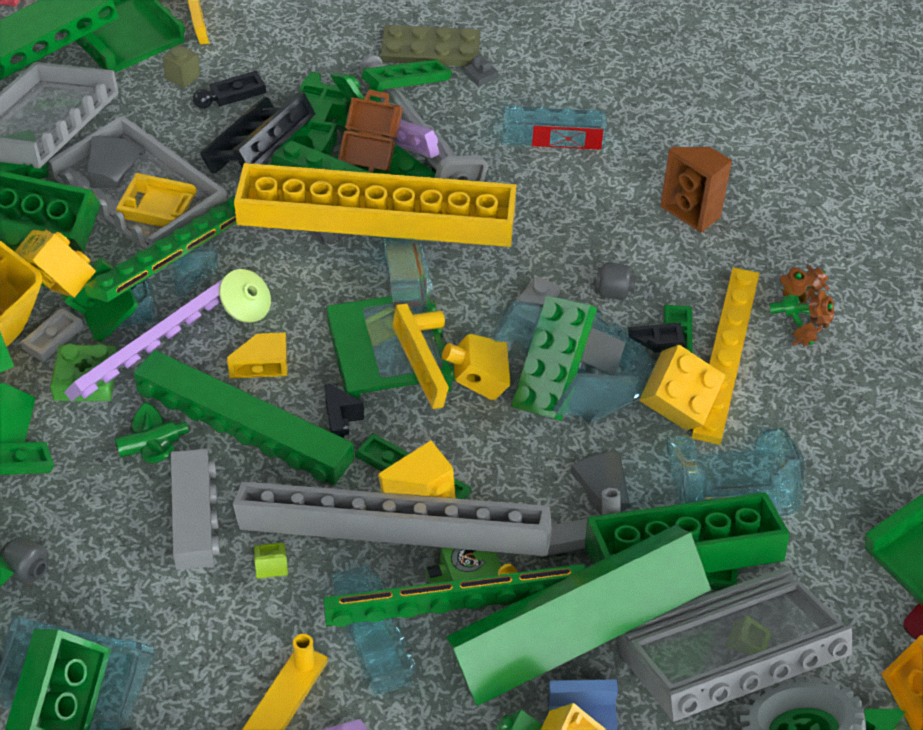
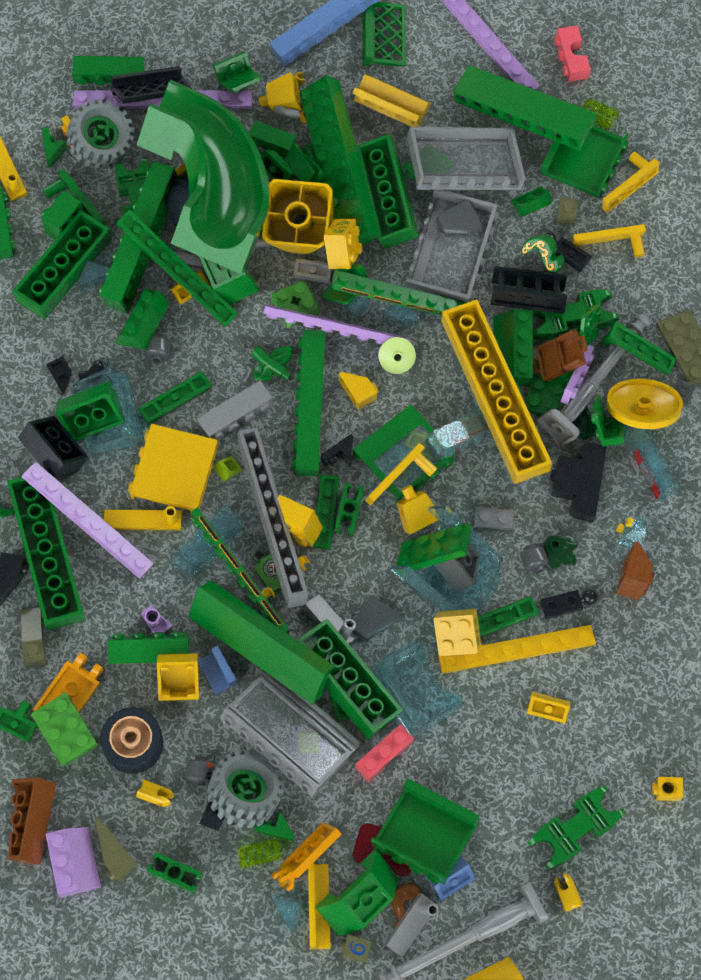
camera: 60 degrees right, 20 degrees up
(114, 577) = (175, 398): none -> green plate
(139, 95) = (531, 201): none -> green slope
(162, 200) = (443, 269): yellow container -> none
(219, 98) = (547, 249): none -> green animal
(225, 622) = (173, 467): none -> yellow panel
(254, 27) = (632, 232): none -> yellow piece
(428, 429) = (355, 504): none -> green piece
(481, 96) = (644, 403): none -> yellow dish
(487, 137) = (608, 430): none -> green bracket
(544, 197) = (580, 480): none -> black brick
(612, 251) = (562, 553): none -> dark green plate
(636, 179) = (634, 532): none -> clear light blue piece
(658, 336) = (498, 604): black tile -> none
(690, 277) = (567, 603): none -> black plate
(797, 290) = (567, 686): dark orange plant -> none
(822, 355) = (548, 707): none -> yellow slope
(822, 564) = (384, 752): none -> coral arch

